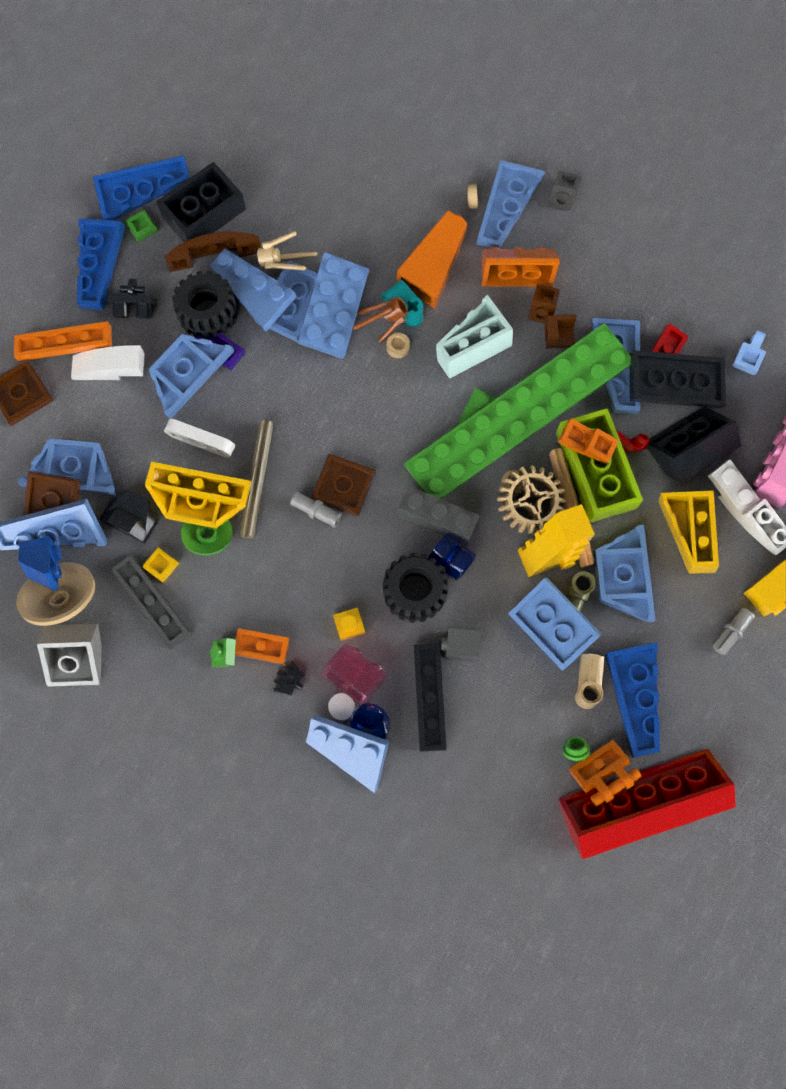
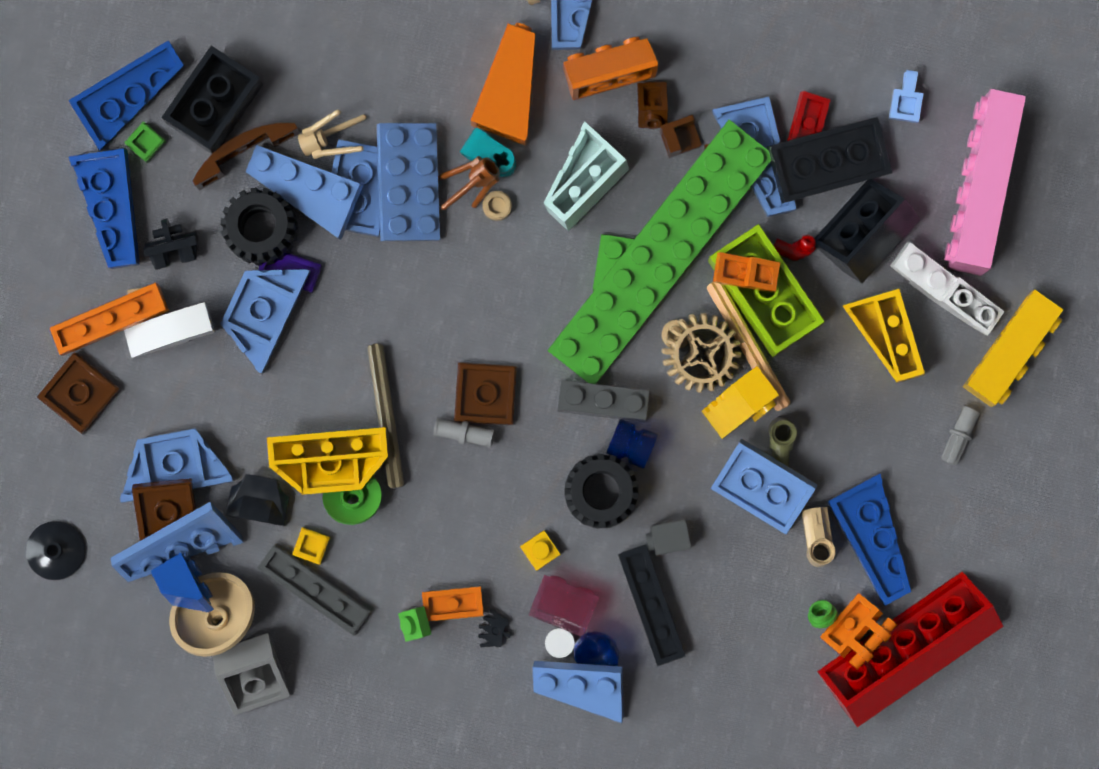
camera: 15 degrees left, 10 degrees up
(199, 438) = (306, 388): white beam -> none
(625, 575) = (827, 406): medium blue wing -> none

